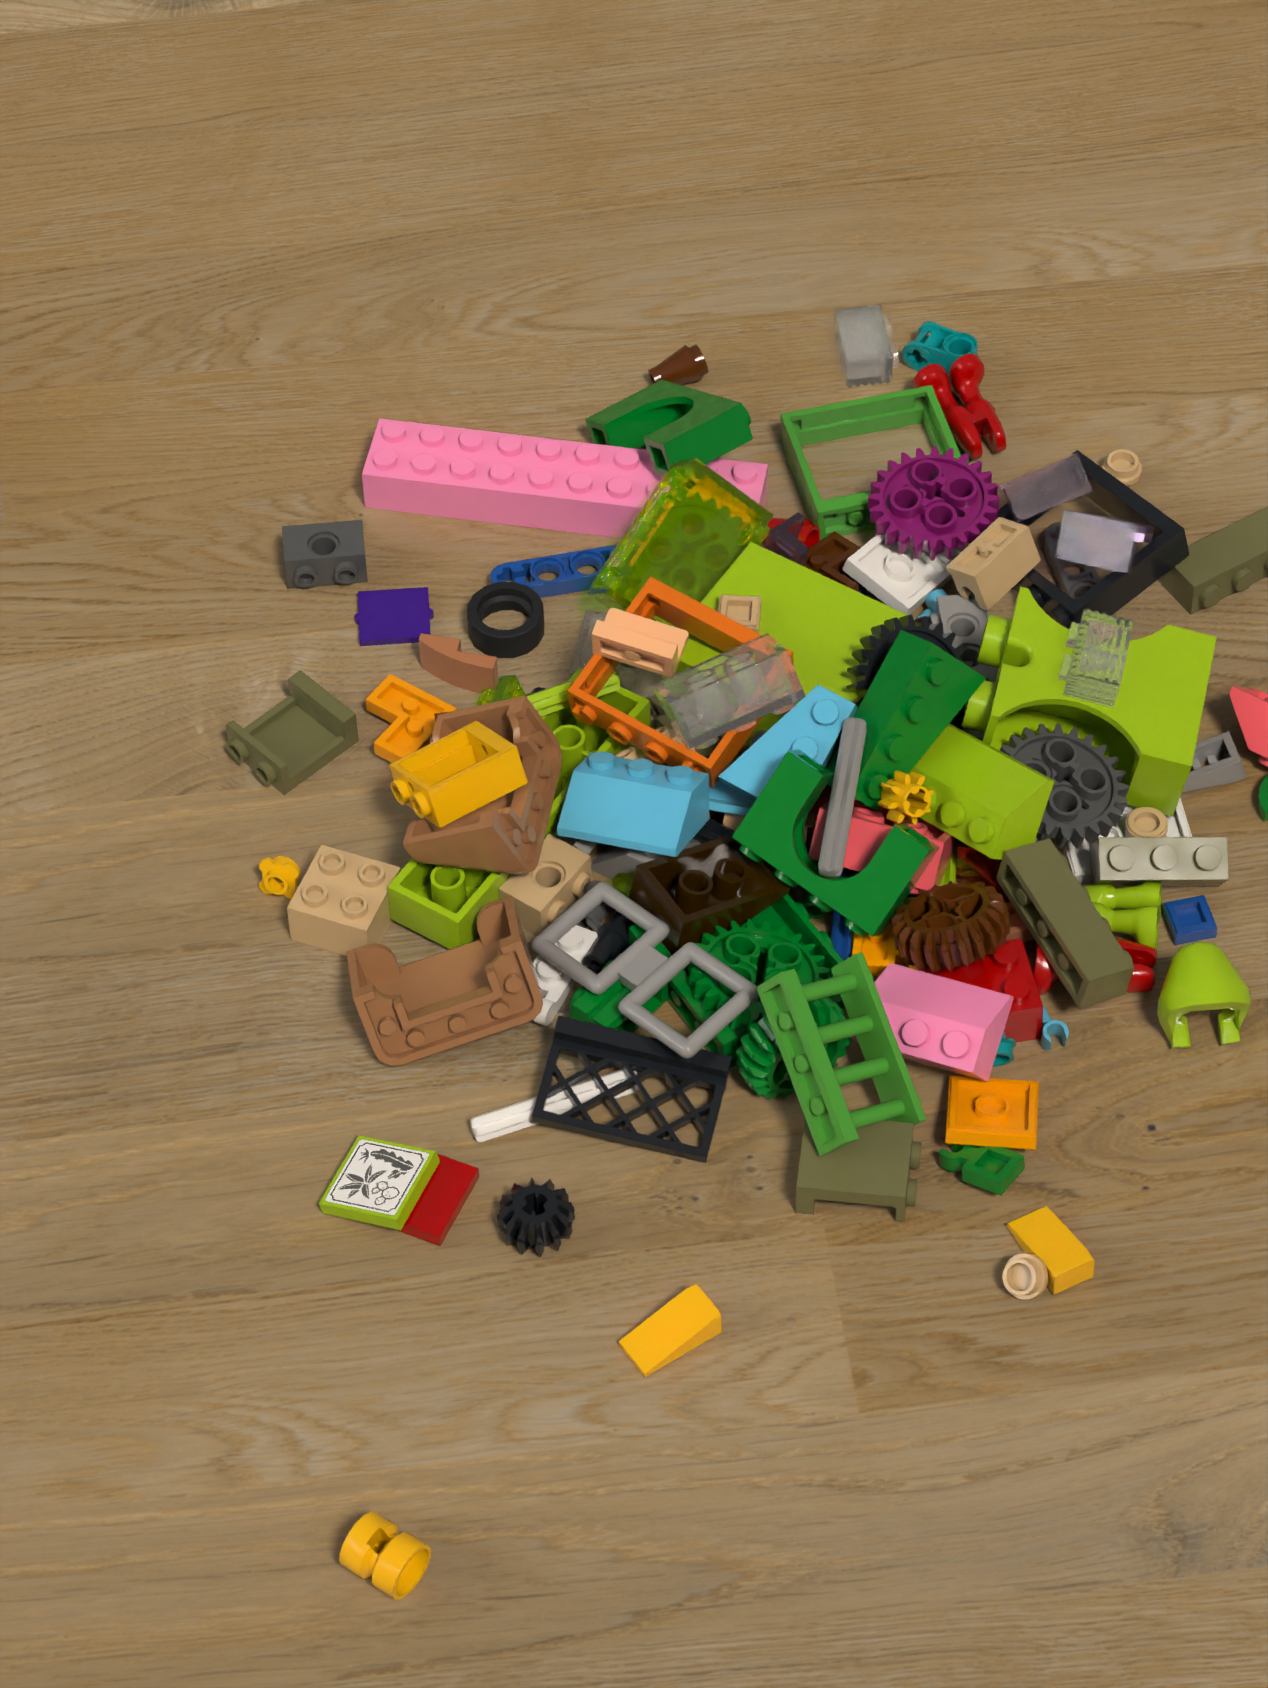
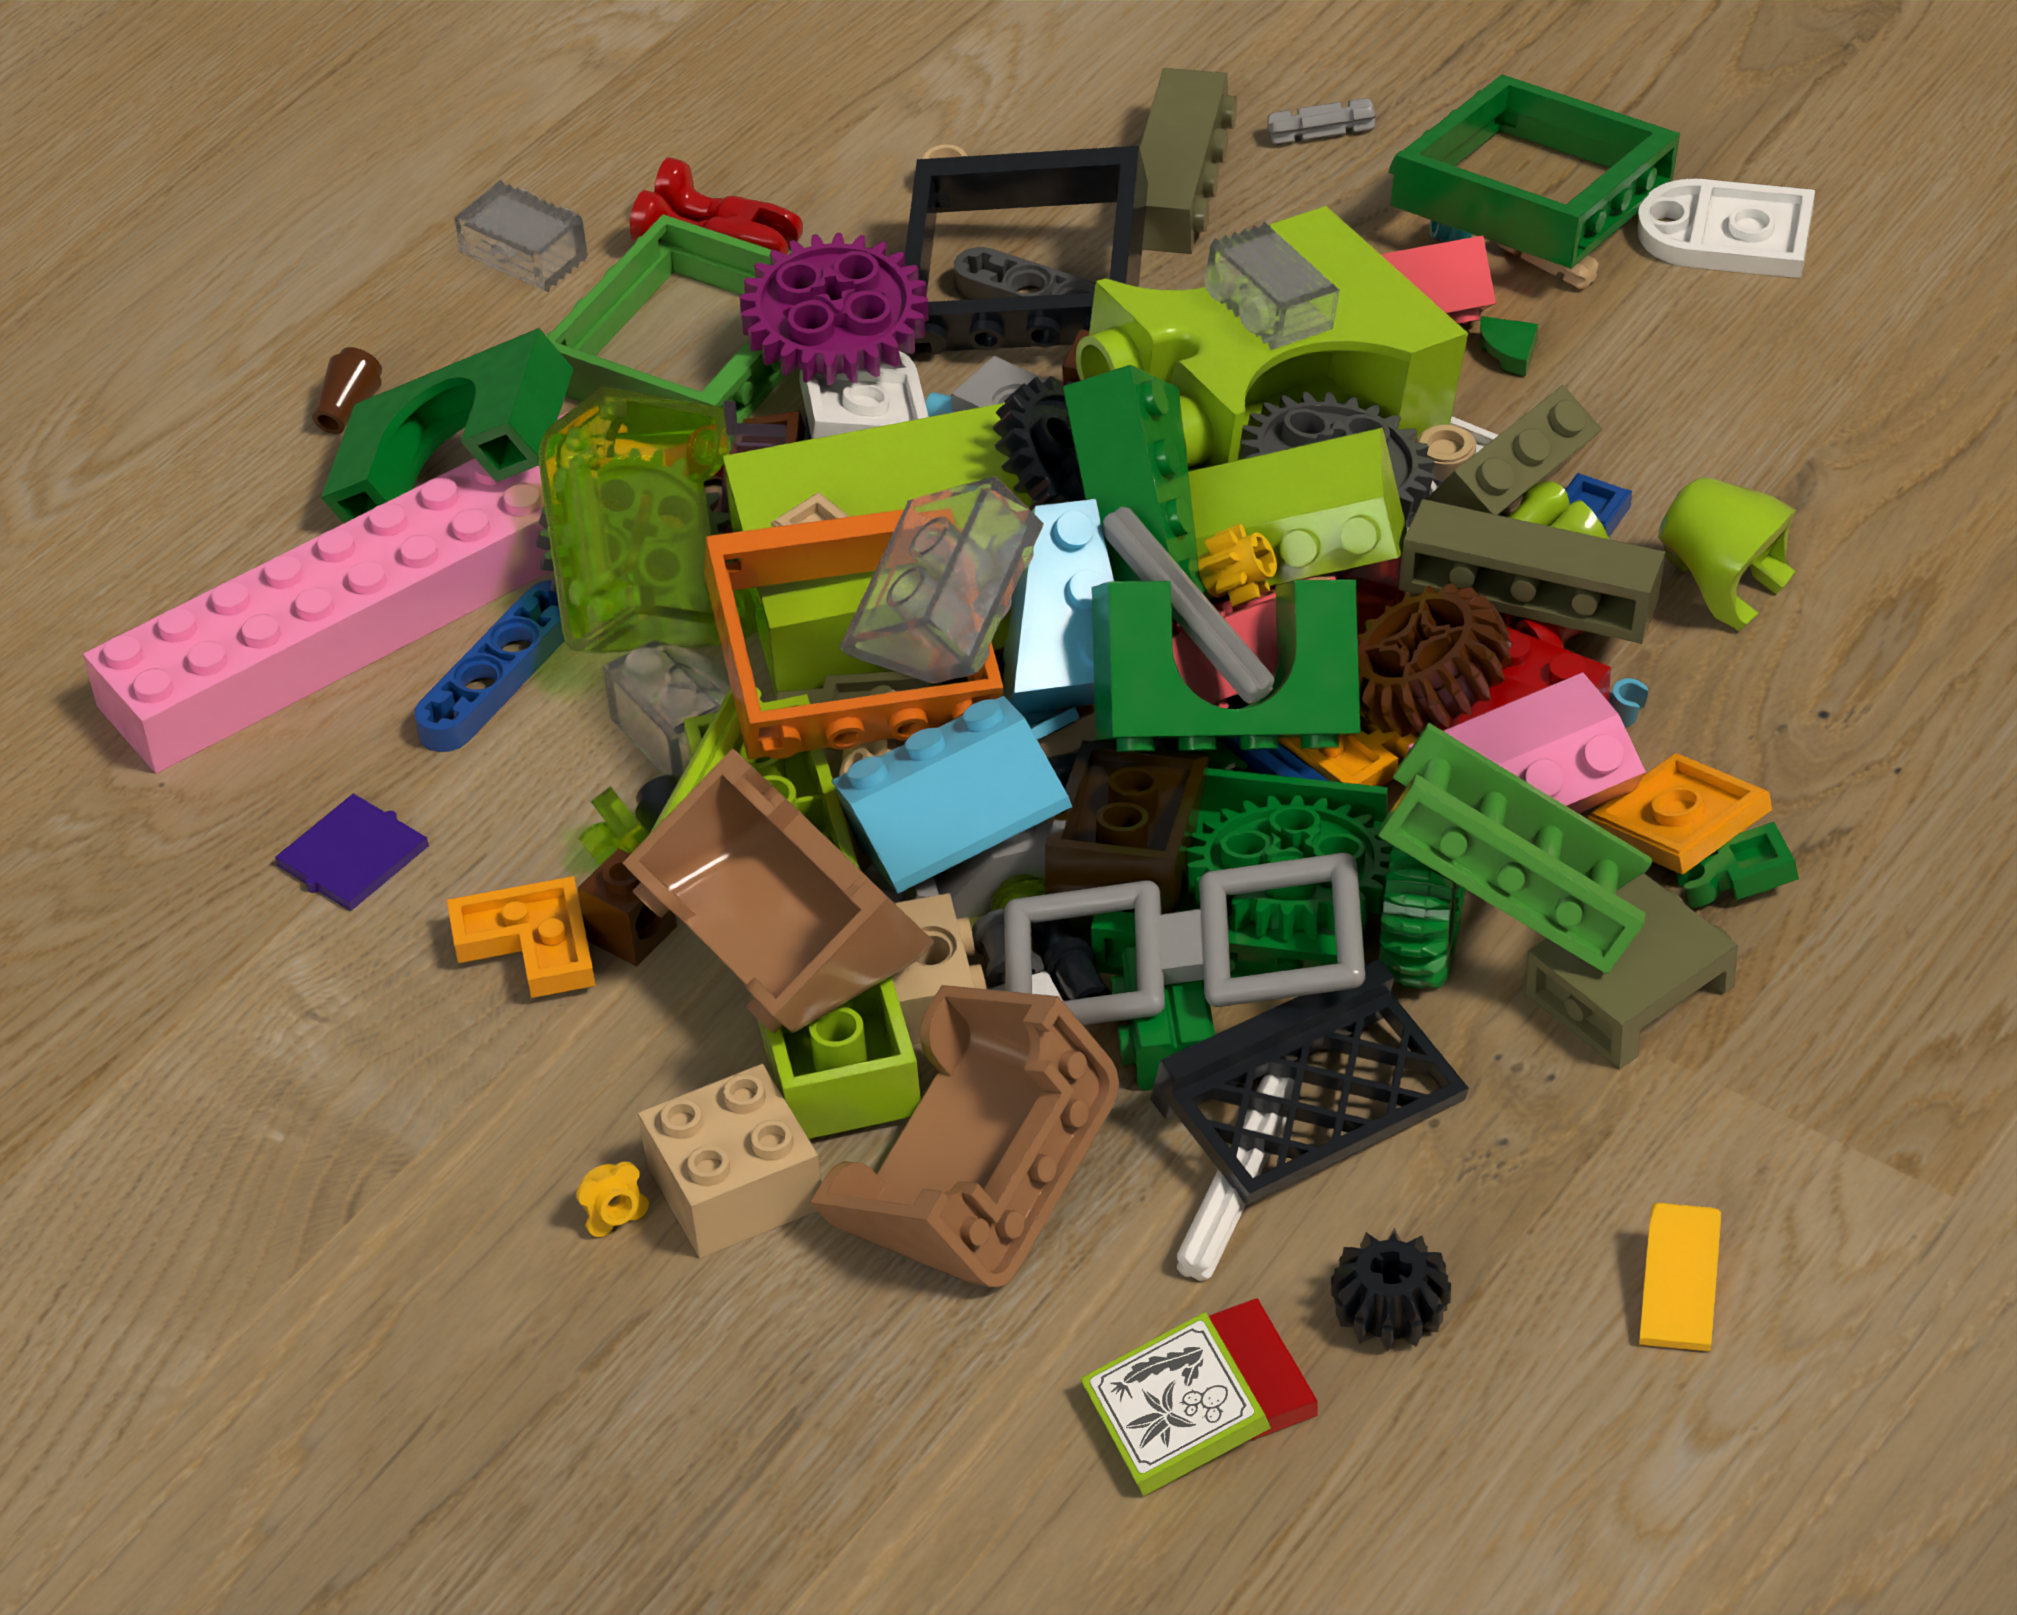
camera: 45 degrees left, 5 degrees down
(294, 735) = (413, 1045): olive panel -> none
(324, 554) = (190, 843): dark grey brick -> none
(446, 661) = (497, 842): nougat slope -> none
(457, 774) = (712, 859): yellow window -> none
(505, 597) = (500, 788): black tyre -> none
(639, 642) = (781, 609): light nougat panel -> none
(940, 347) = (614, 184): teal piece -> none
(994, 562) = (984, 308): tan hinge -> none
(1025, 1276) = (1927, 931): tan plate -> none
(1046, 487) = (939, 206): panel -> none
(1050, 1240) = (1908, 888): yellow slope -> none
(1100, 540) = (1074, 213): panel -> none

